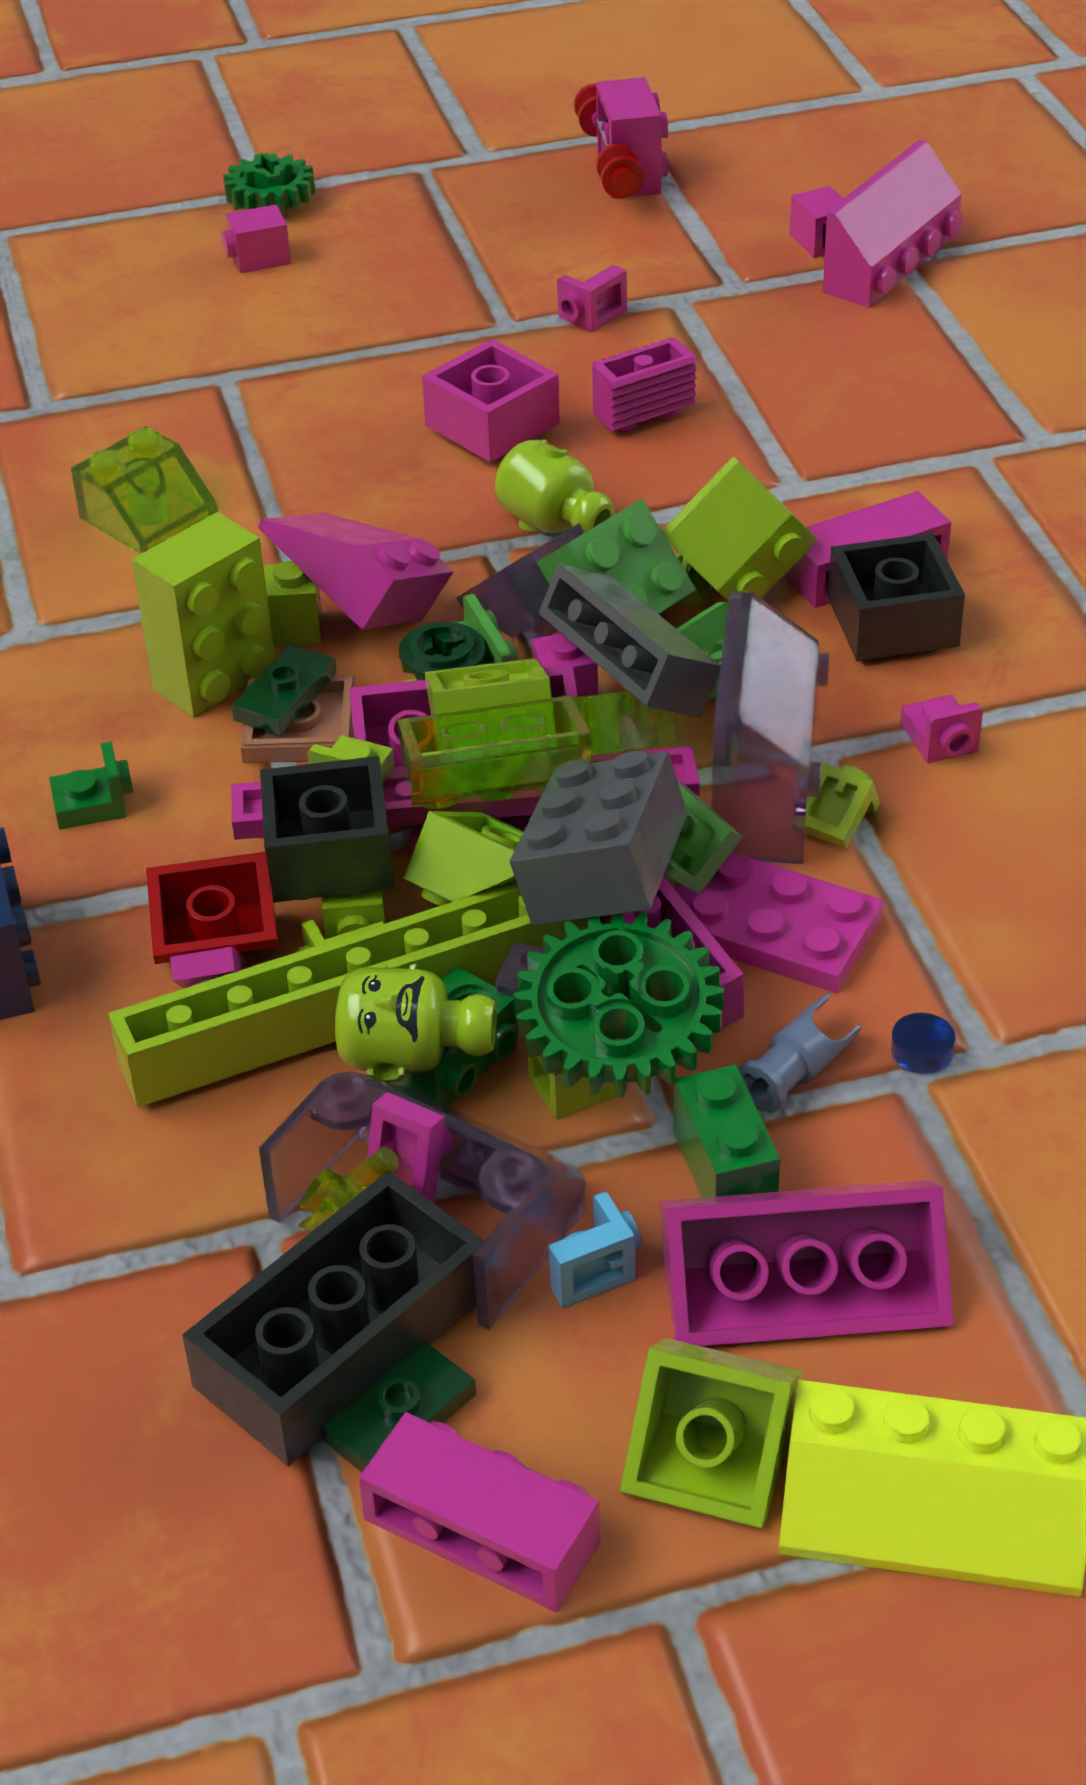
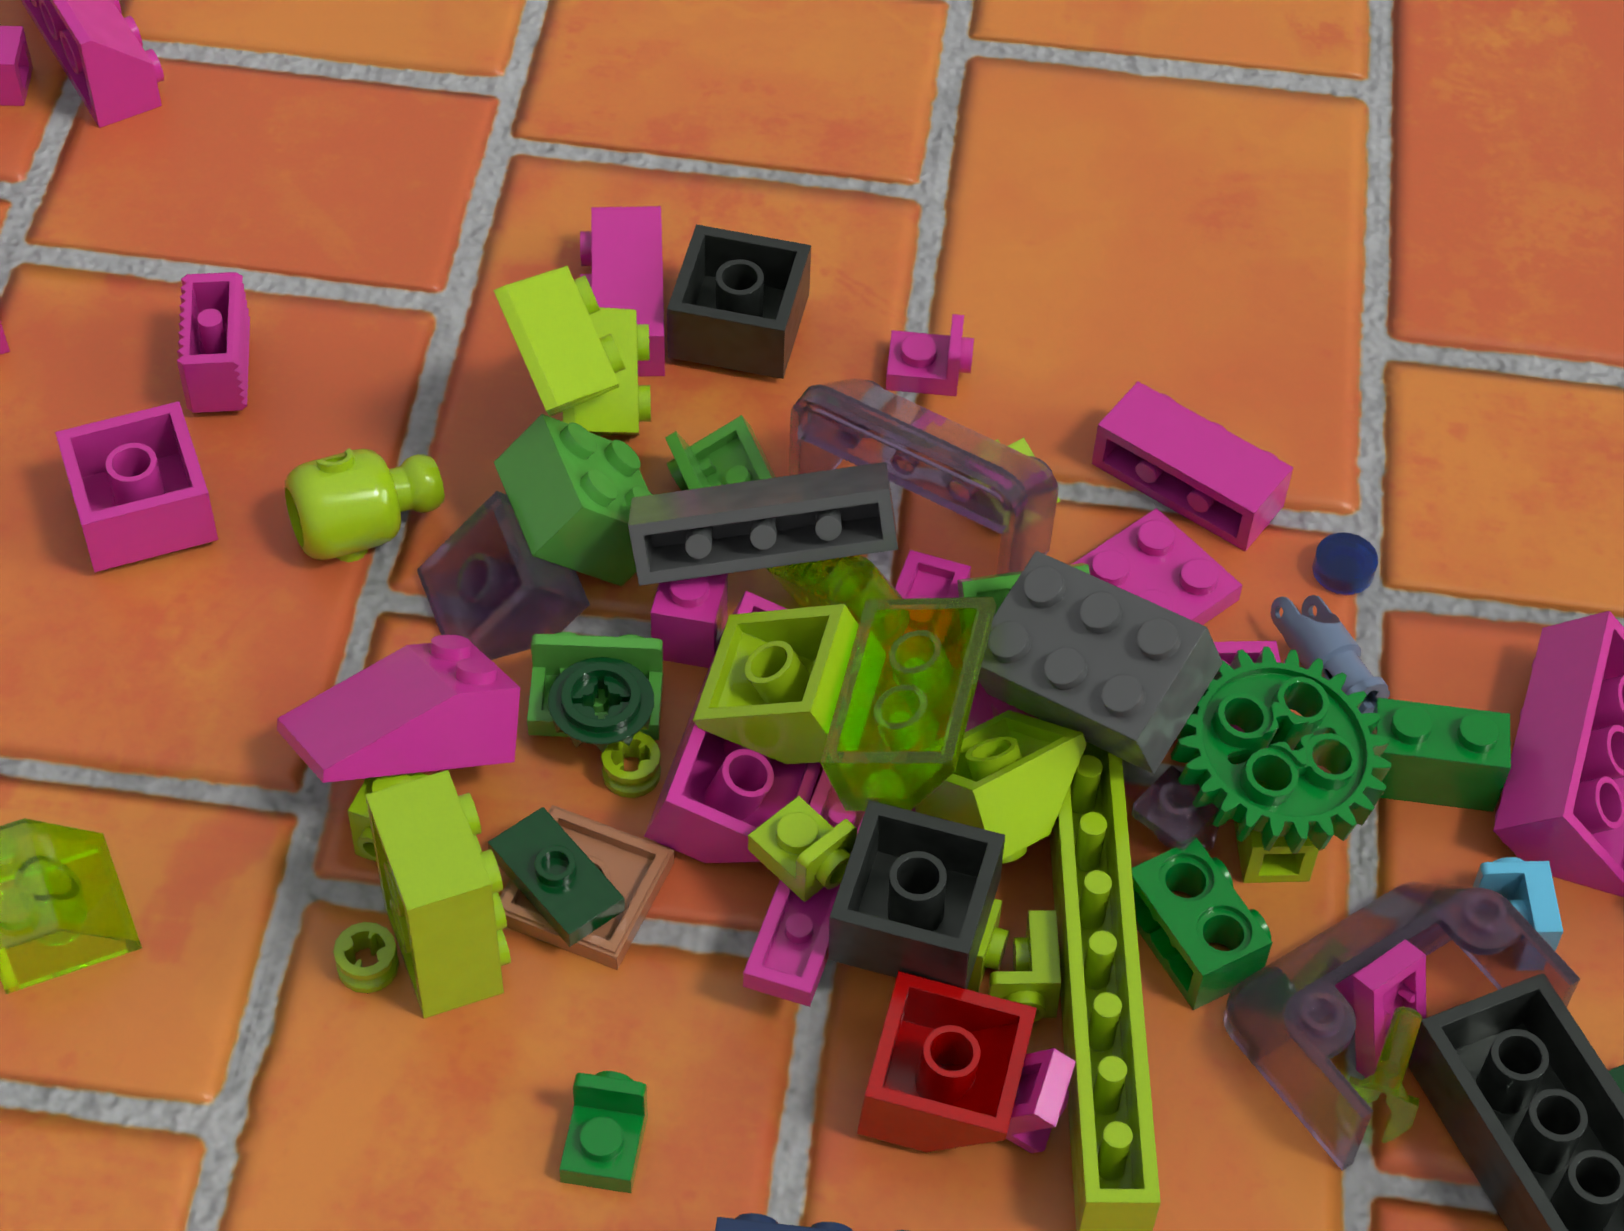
camera: 70 degrees left, 10 degrees up
(403, 1021) = (1237, 930): lime piece -> none
(680, 453) = (559, 339): none -> lime slope
(948, 906) = (1191, 465): none -> dark pink brick

